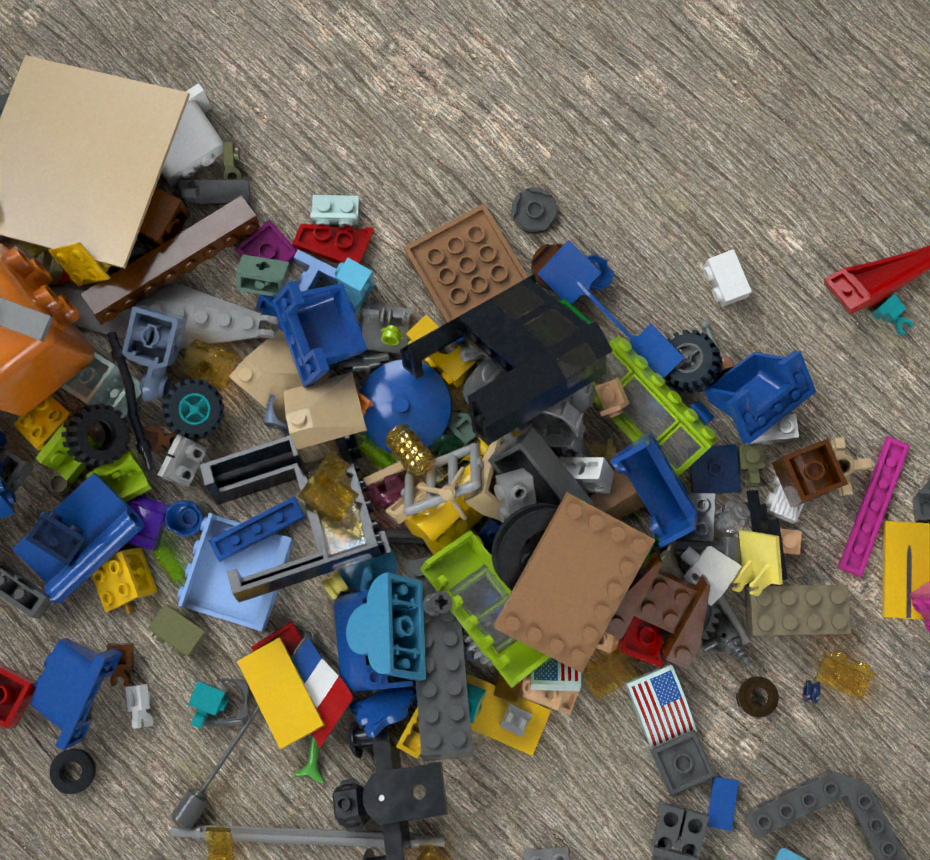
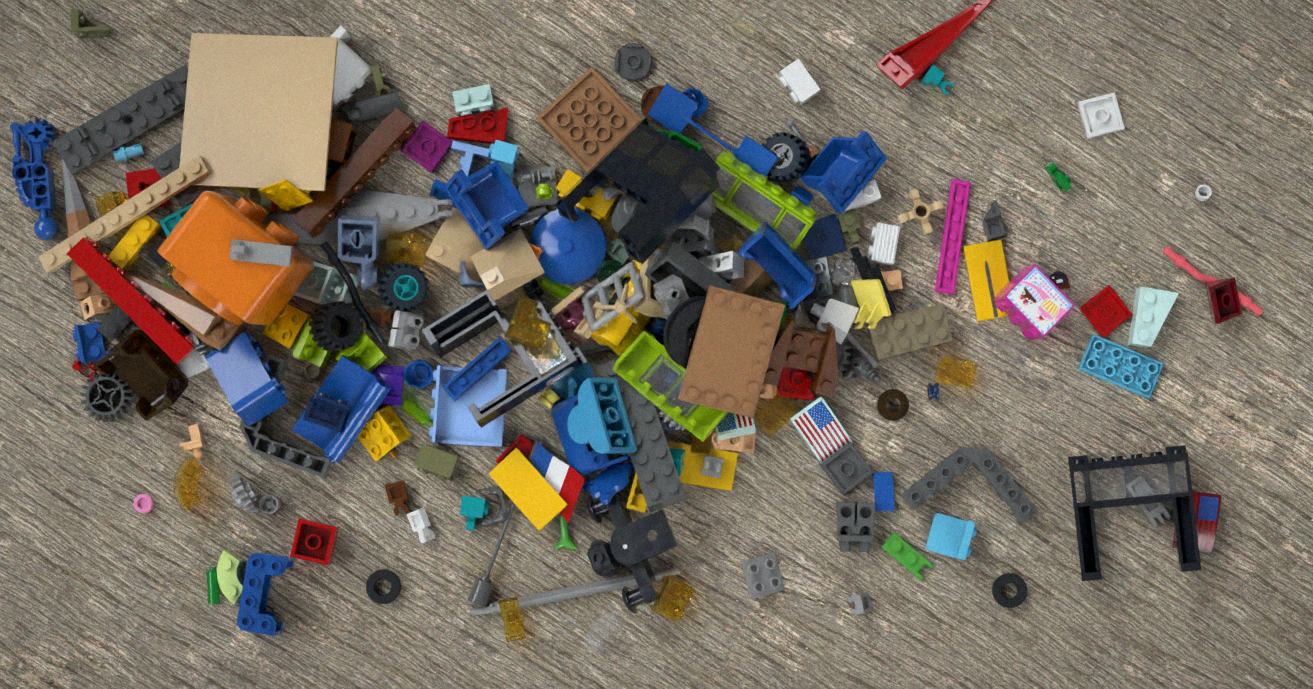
camera: 15 degrees left, 5 degrees up
(70, 686) = (367, 522): blue windscreen -> none
(261, 275) = (430, 168): sand green brick -> none
(410, 450) = (581, 279): clear yellow piece -> none
(440, 597) = (634, 387): dark grey bush -> none
(612, 397) = (729, 201): light nougat bracket -> none
(809, 473) = (893, 225): reddish brown brick -> none

